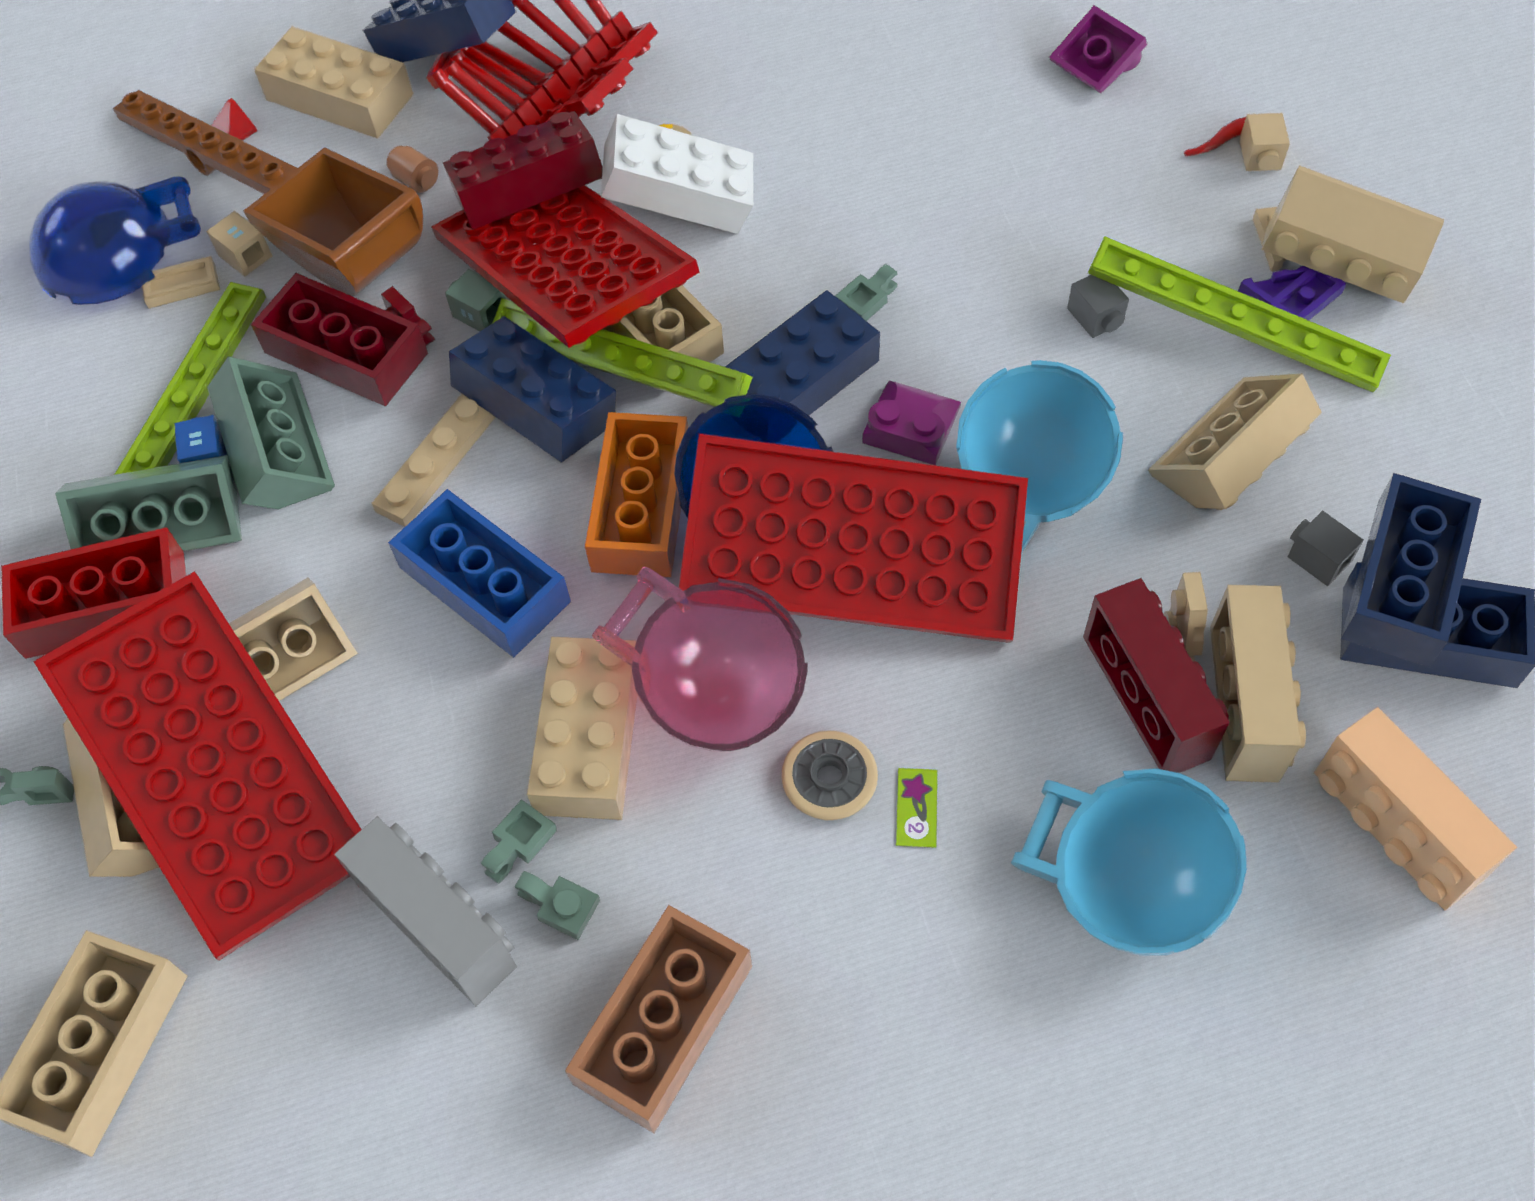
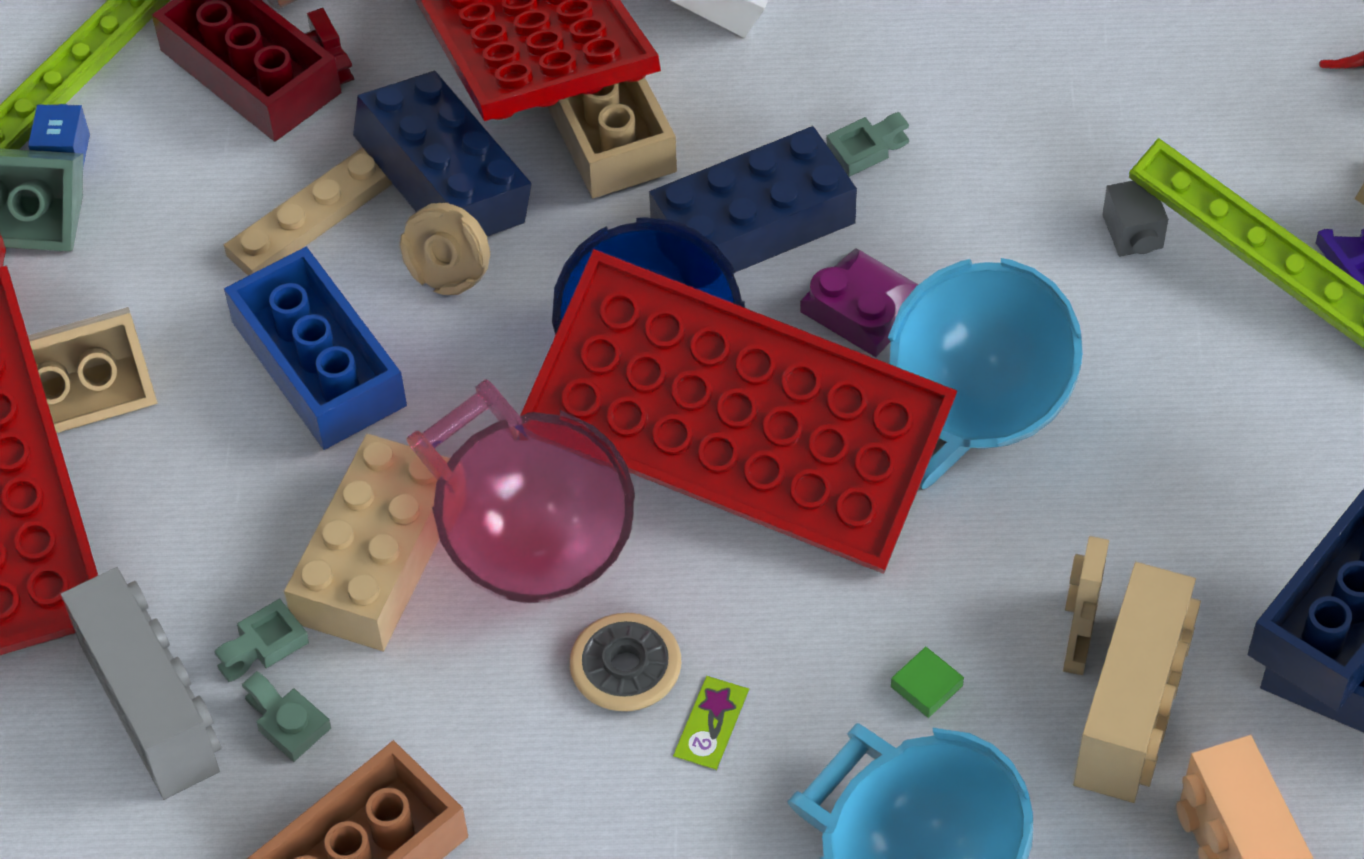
camera: 15 degrees right, 5 degrees down
(268, 434) = (136, 142): sand green slope -> none
(473, 300) = (412, 46): sand green brick -> none
(561, 461) = (445, 248): none -> tan tile
(636, 495) = (507, 309): orange brick -> none
(641, 362) = (570, 158): lime tile -> none
(1079, 725) = (927, 682): none -> bright green tile
(1155, 677) = (1024, 646): dark red brick -> none
(1237, 440) = (1239, 413): tan slope -> none
(1324, 547) = (1281, 550): dark grey brick -> none

